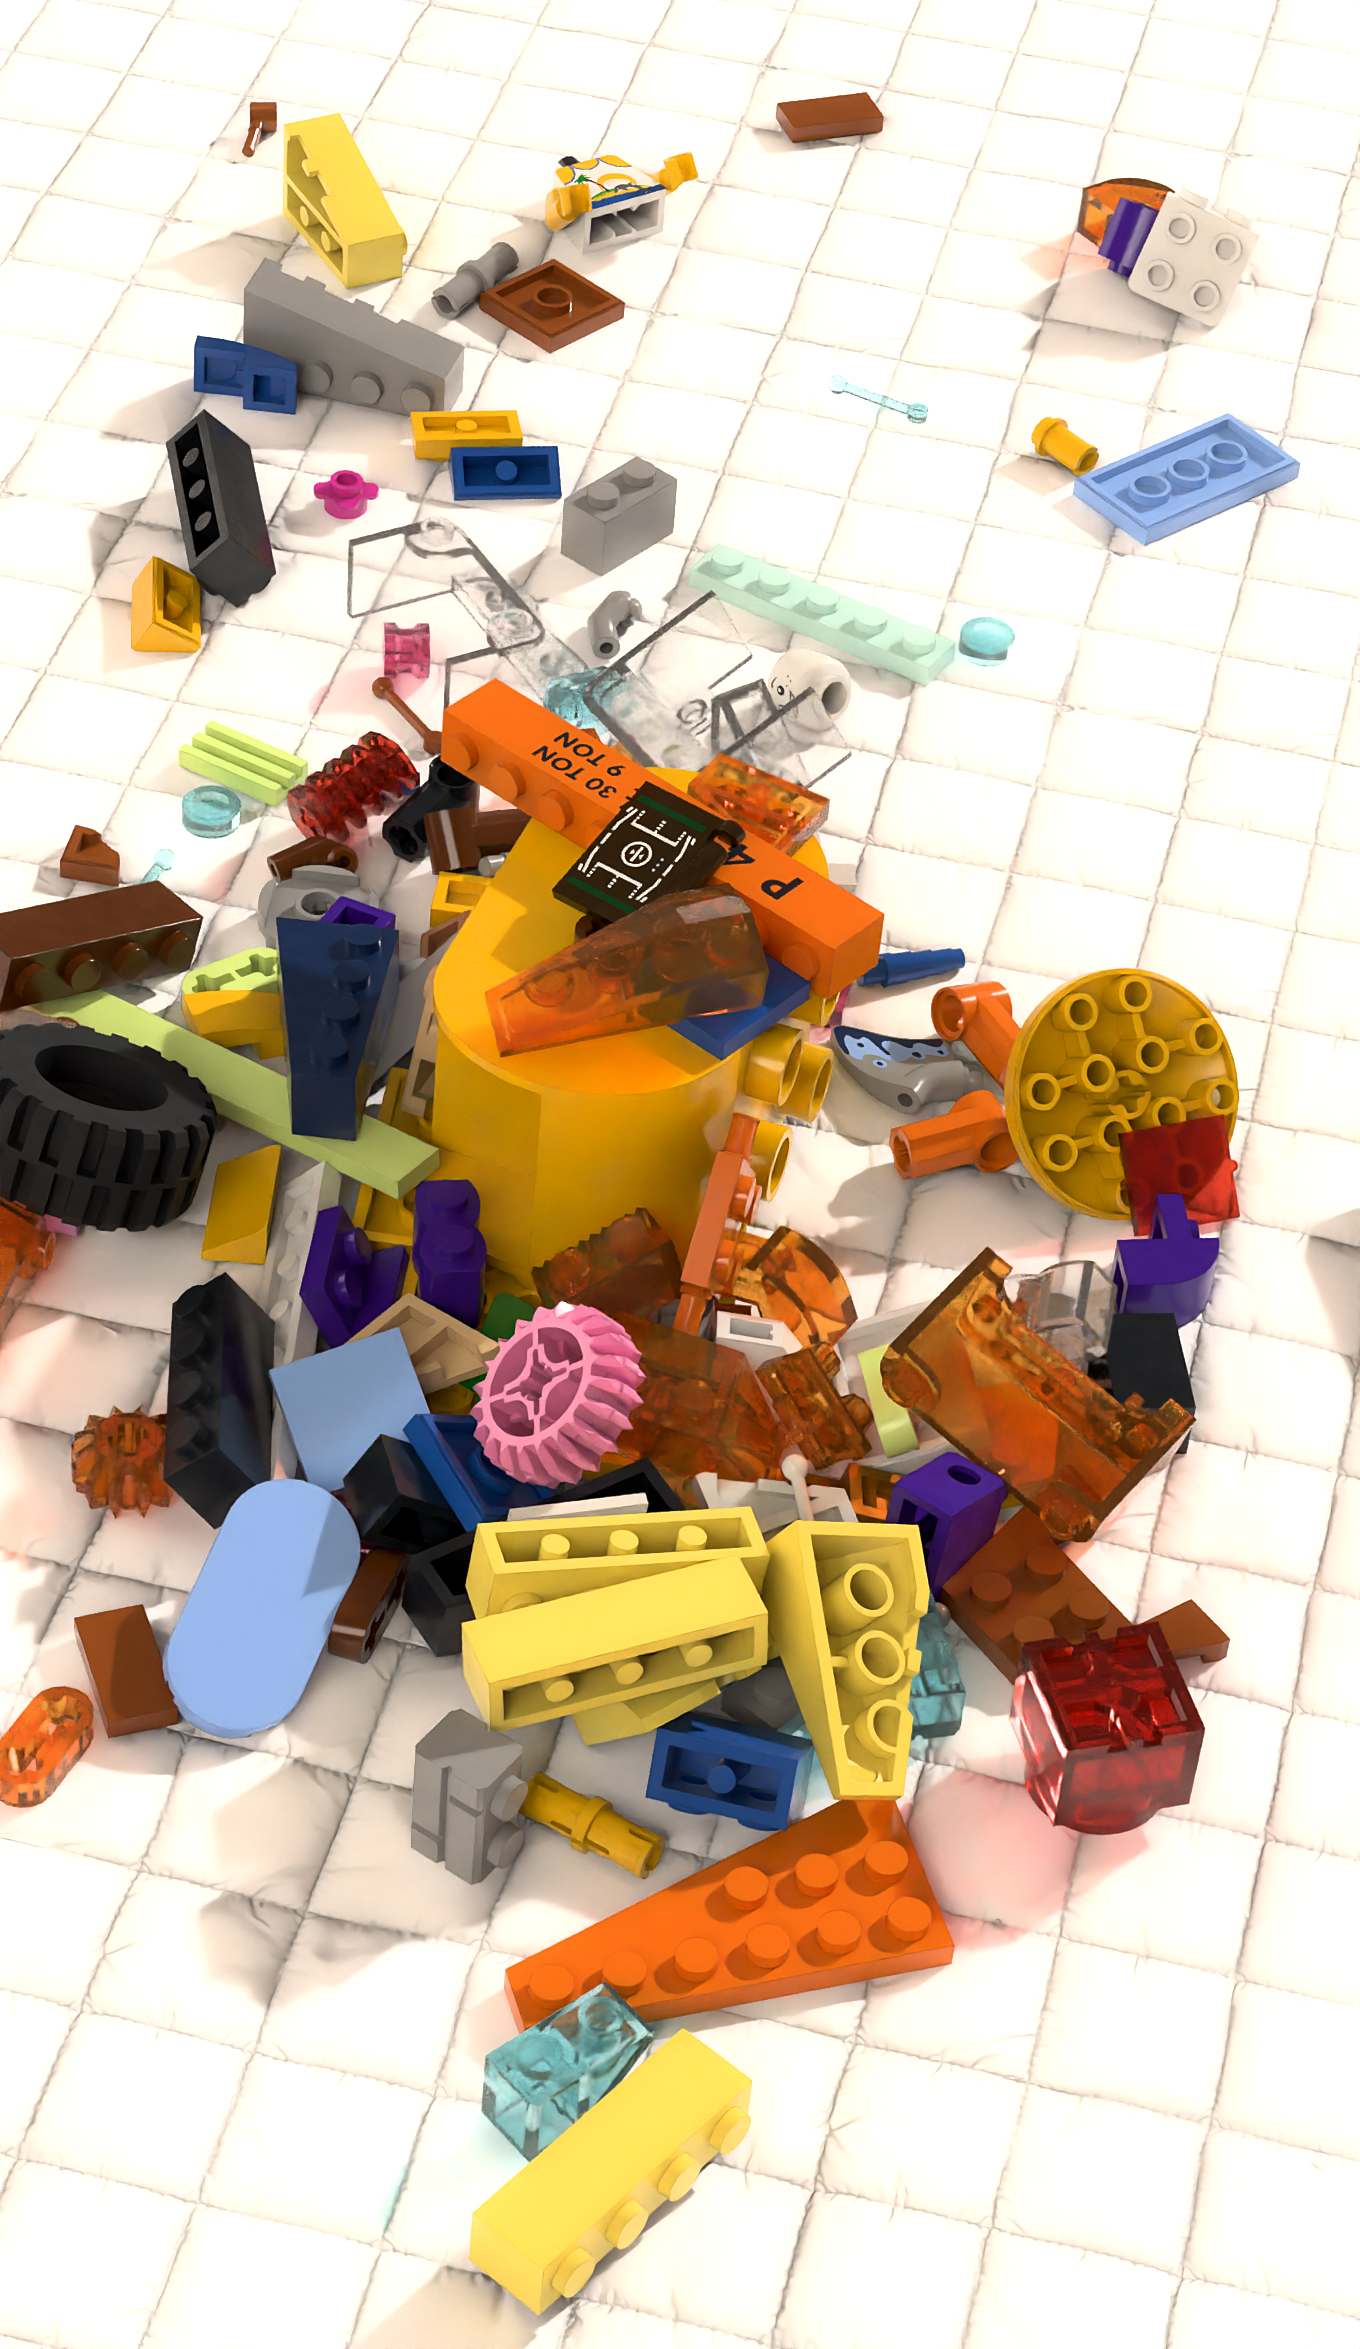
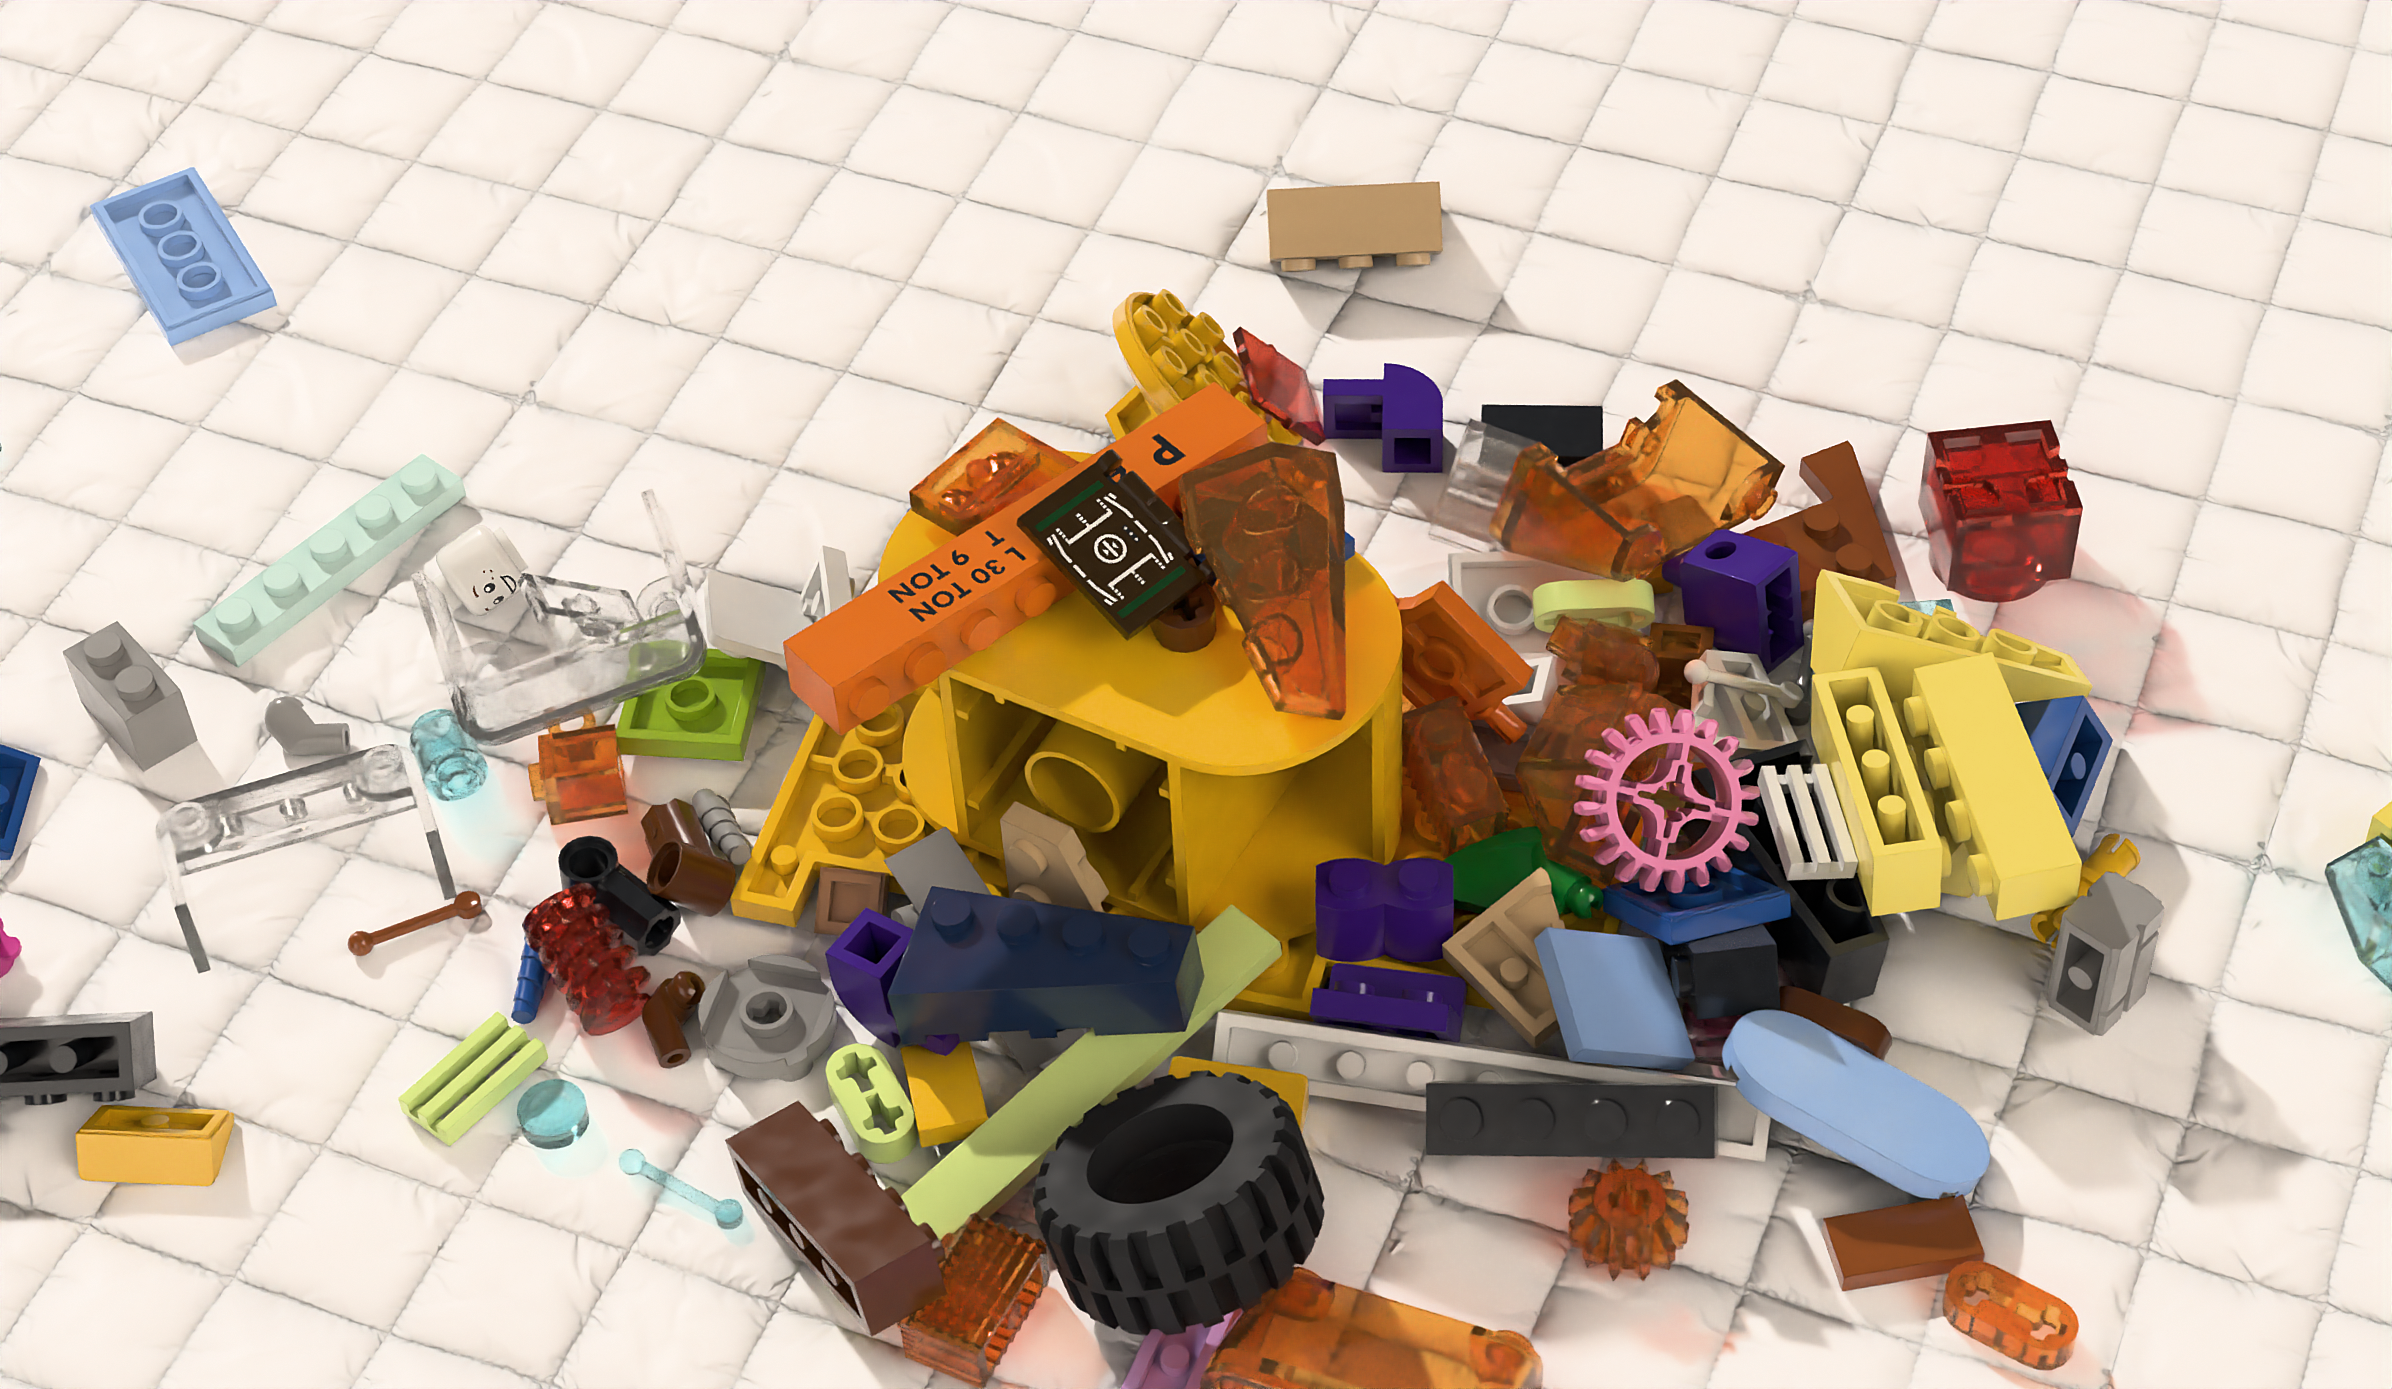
camera: 75 degrees left, 5 degrees up
(90, 858) = (612, 1235): dark orange tile -> none
(406, 650) = (321, 906): clear pink wheel -> none
(779, 1919) = (2195, 794): orange wing -> none
(986, 641) = (414, 433): clear light blue tile -> none
(1055, 439) = (105, 332): yellow pin -> none

